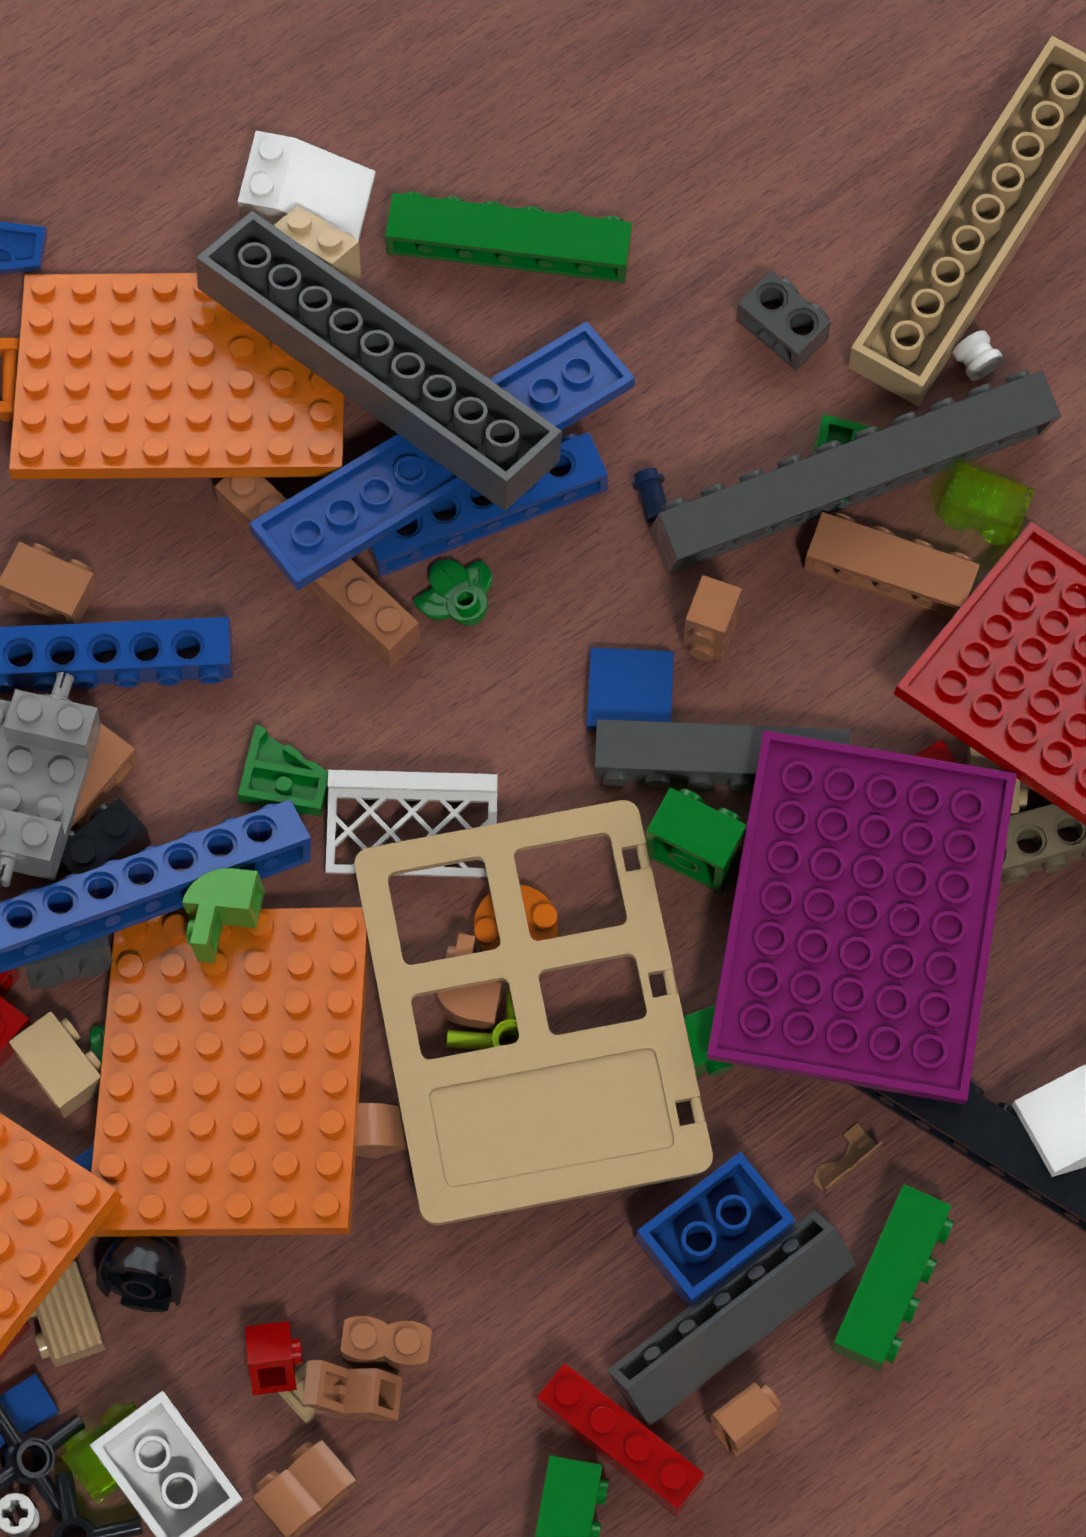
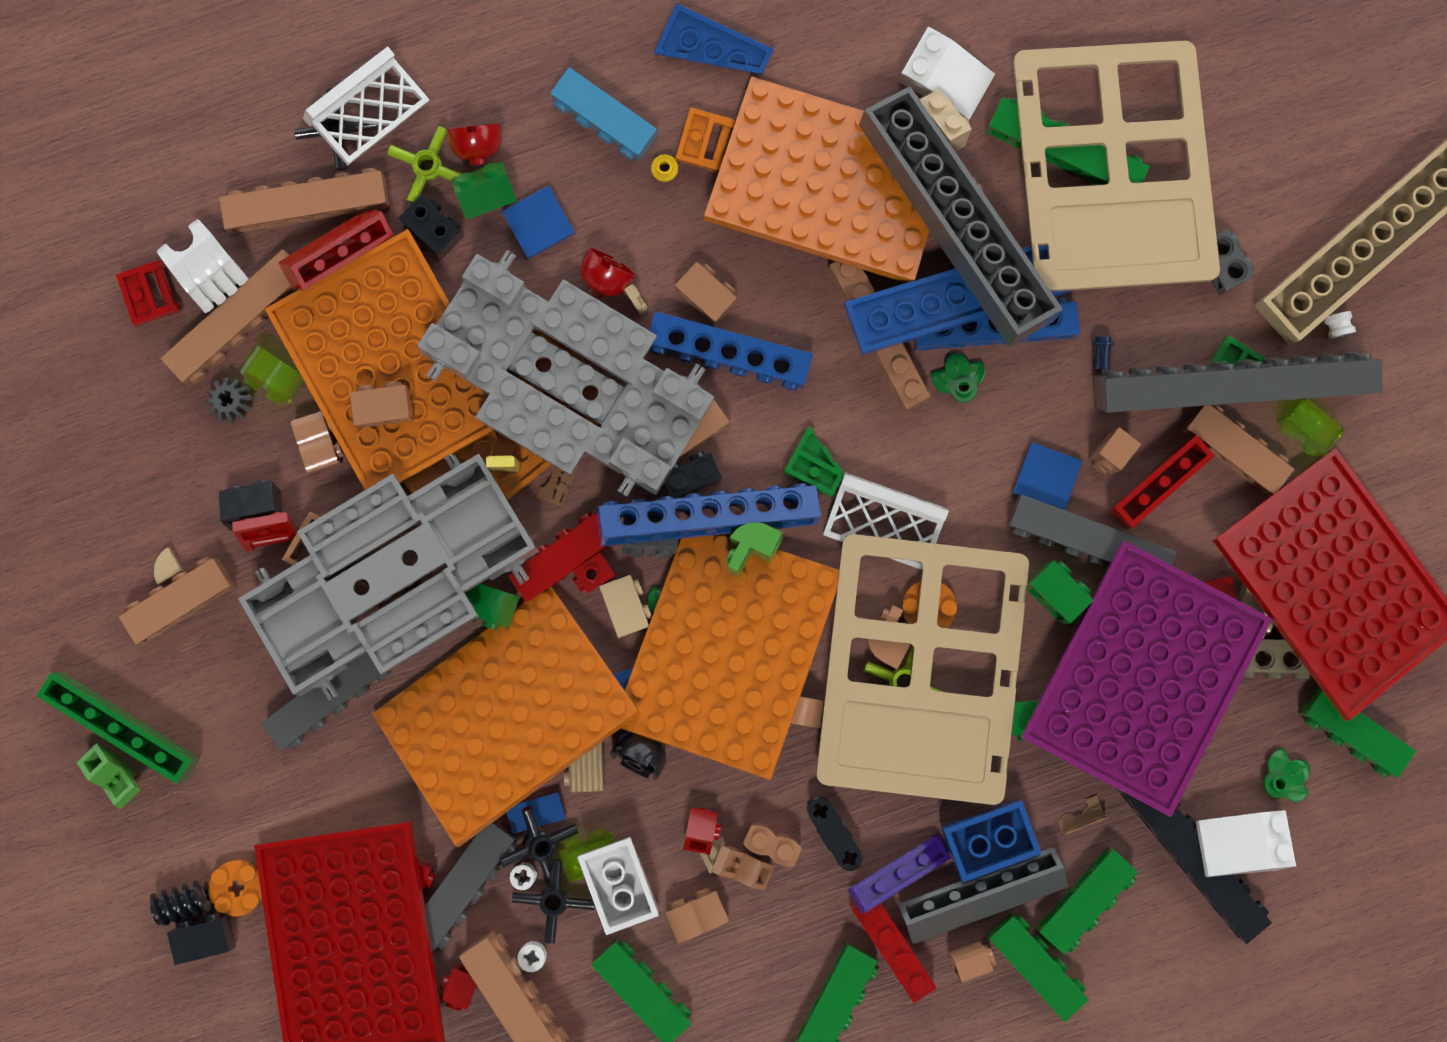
camera: 15 degrees right, 15 degrees up
(477, 1299) = (834, 833): none -> black piece
(593, 1323) = (899, 874): none -> dark purple tile
(616, 314) = (1120, 229): none -> tan door
(795, 643) = (1161, 482): none -> red brick
(850, 1400) = (1037, 967): none -> green brick

